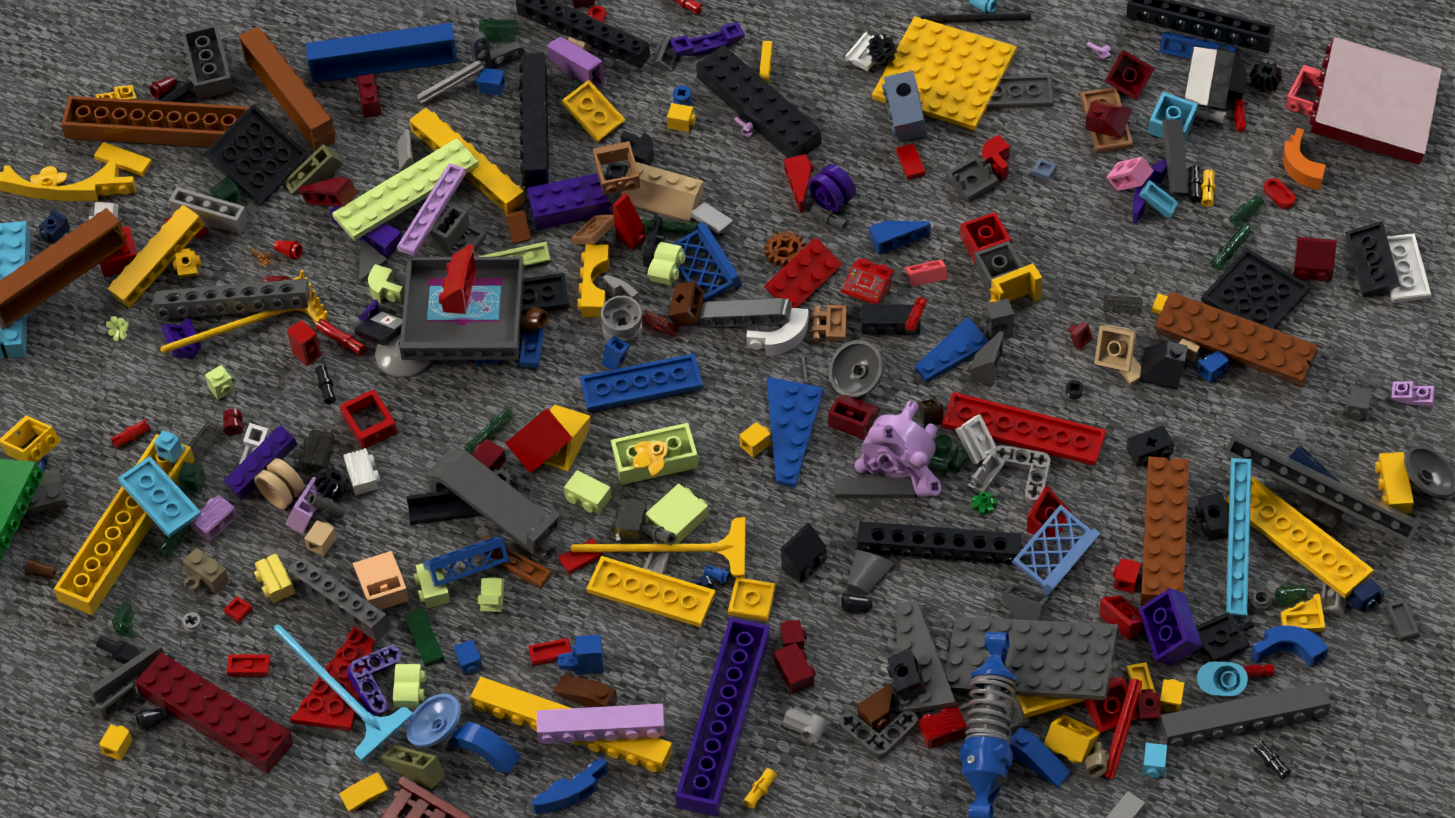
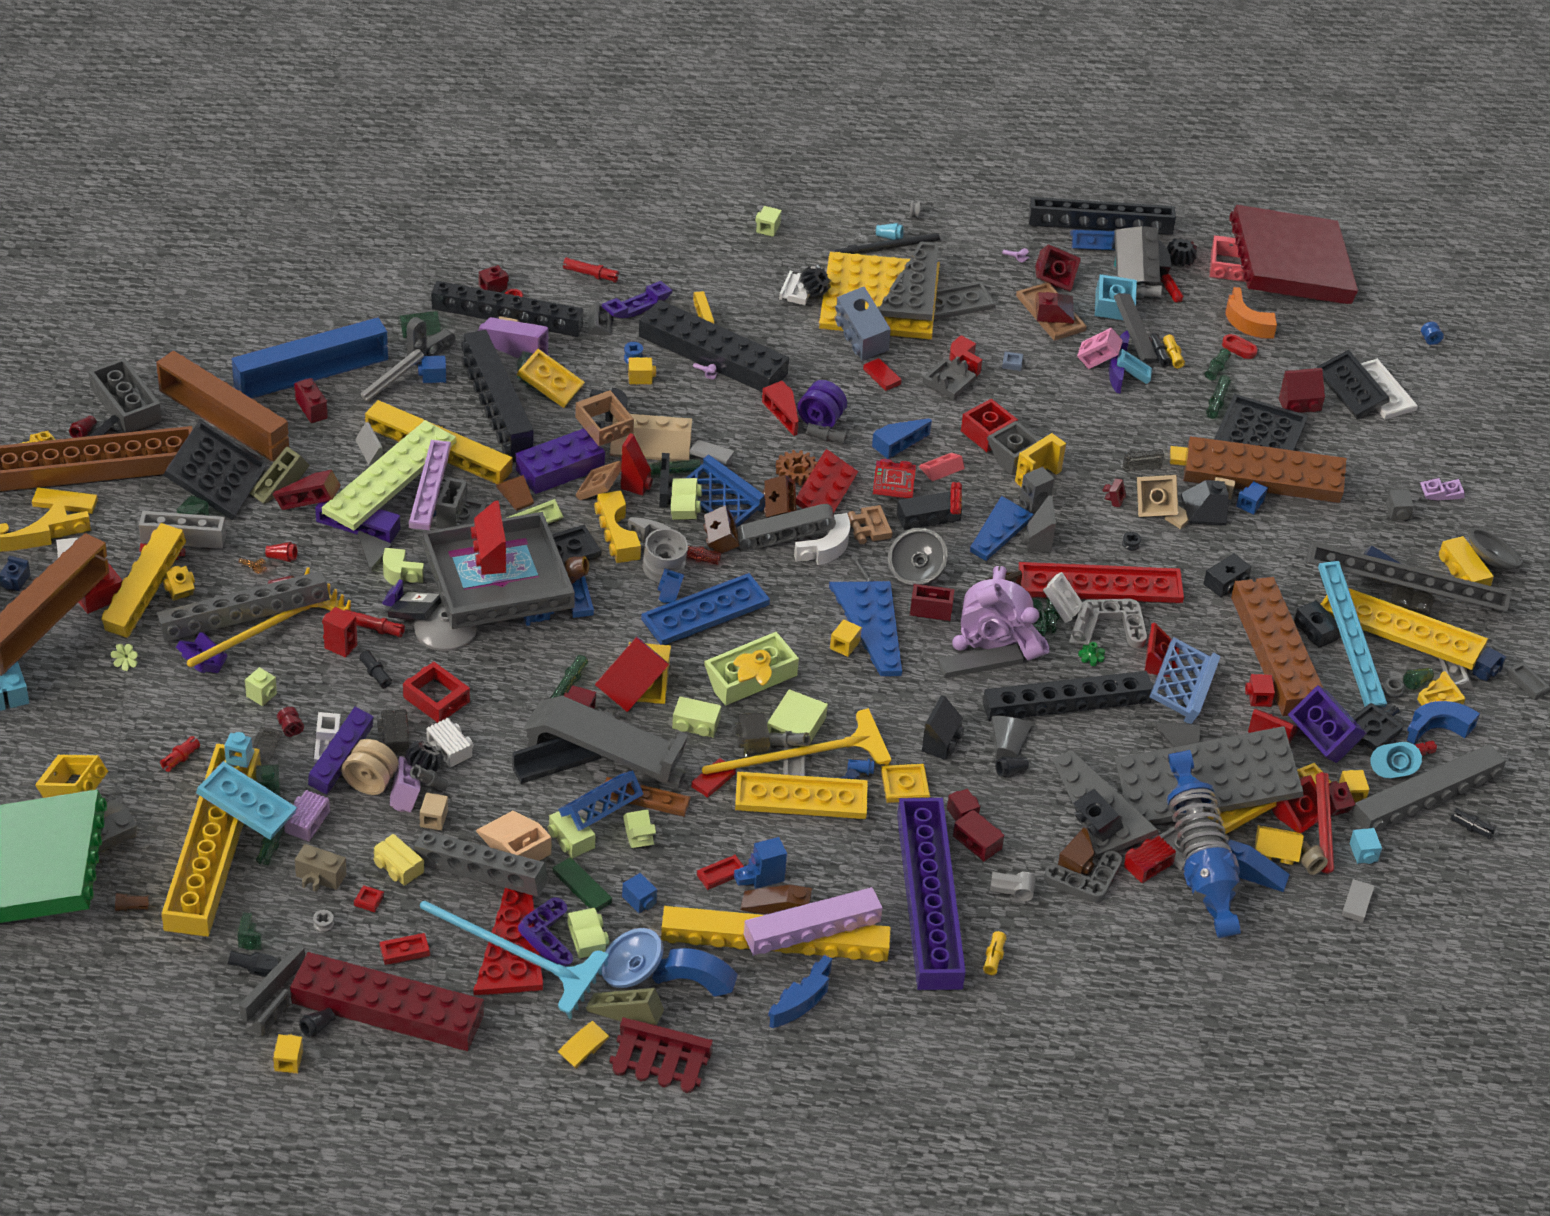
camera: 25 degrees left, 10 degrees down
(750, 281) = (779, 496): none -> reddish brown brick
(974, 75) = (914, 288): none -> dark grey wing

